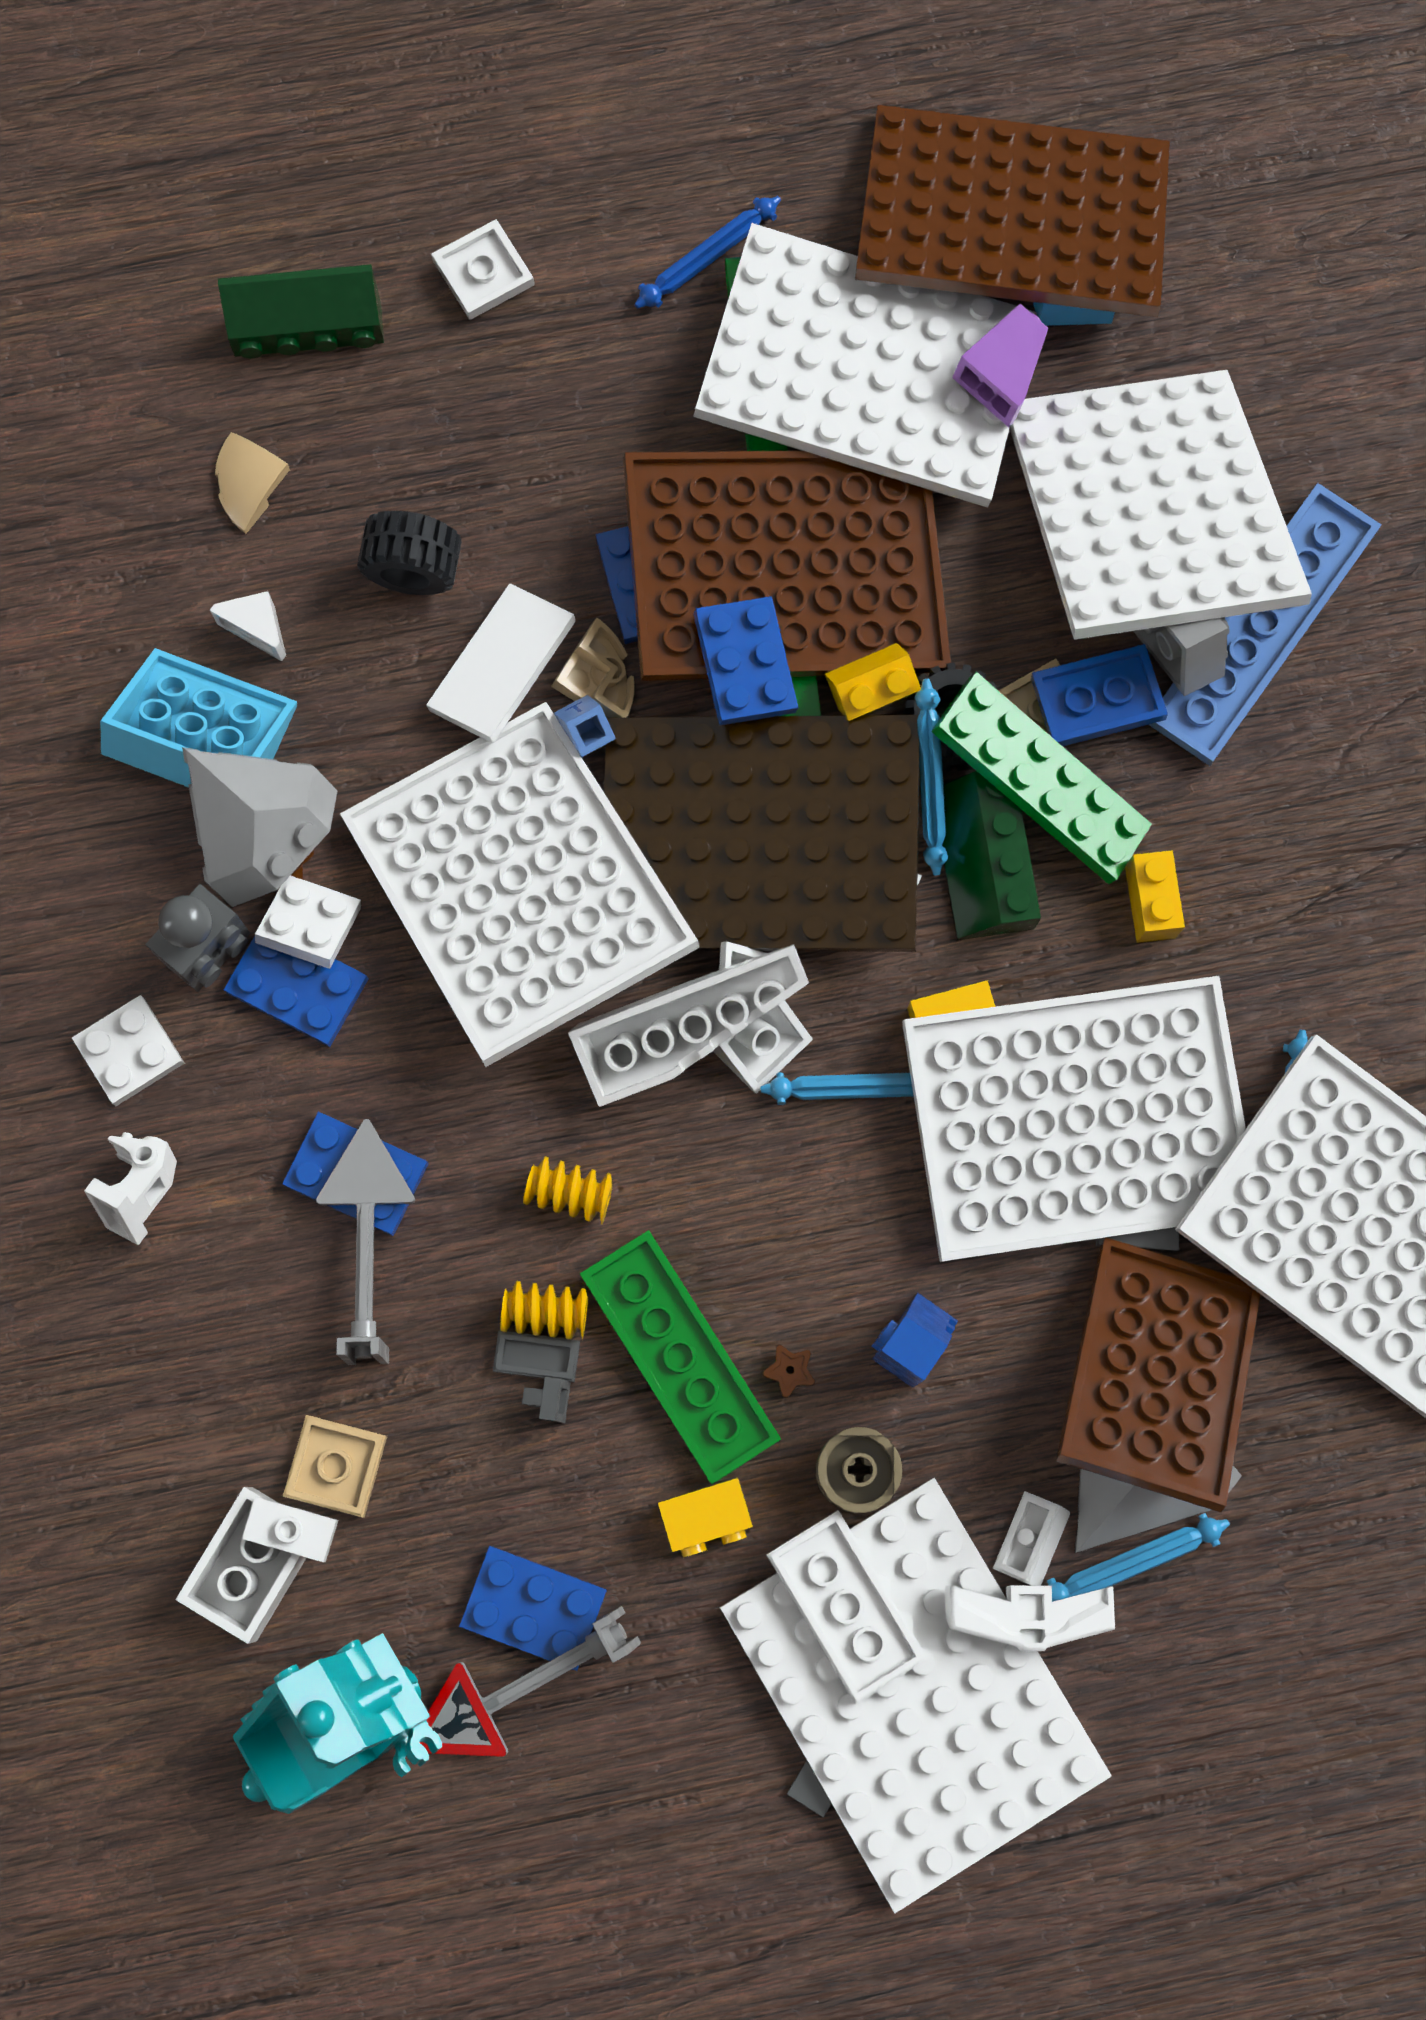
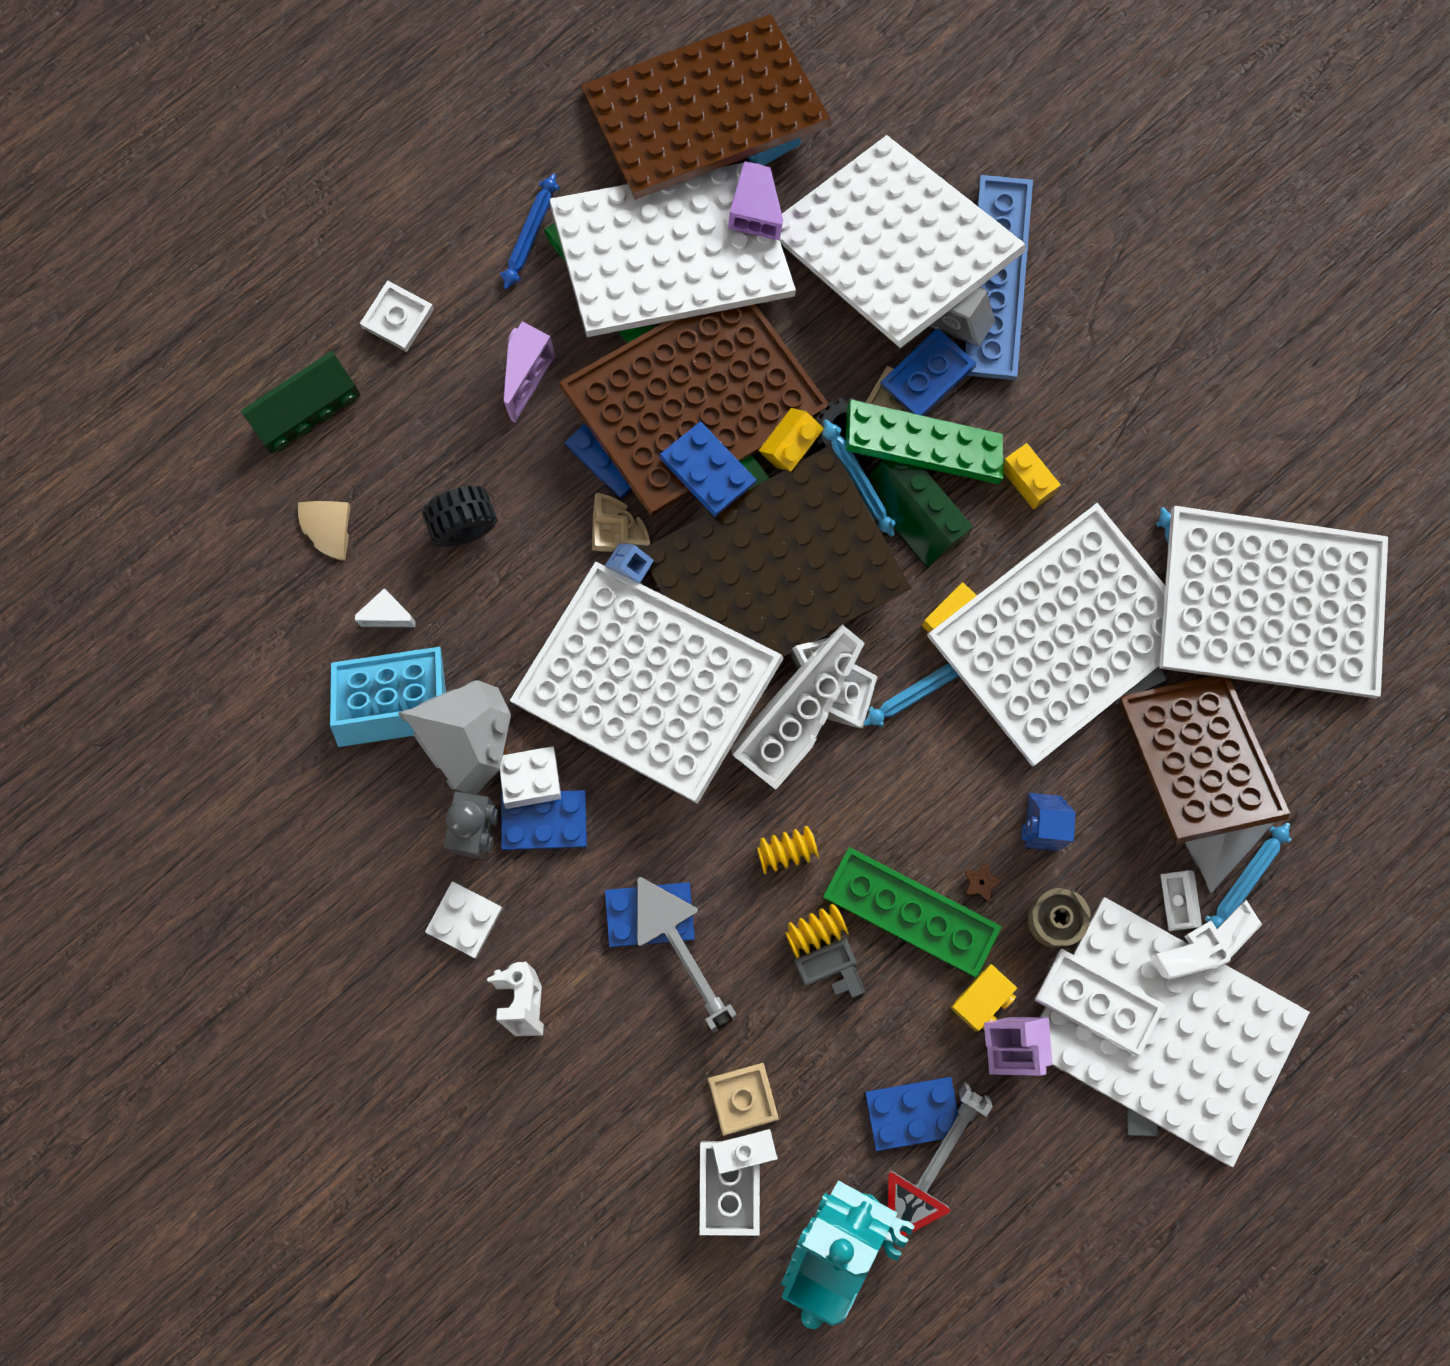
camera: 25 degrees left, 0 degrees up
(501, 663) = (554, 553): white tile -> none
(601, 413) = (527, 362): none -> lavender slope
(710, 1599) = (1018, 1045): none -> lavender plate

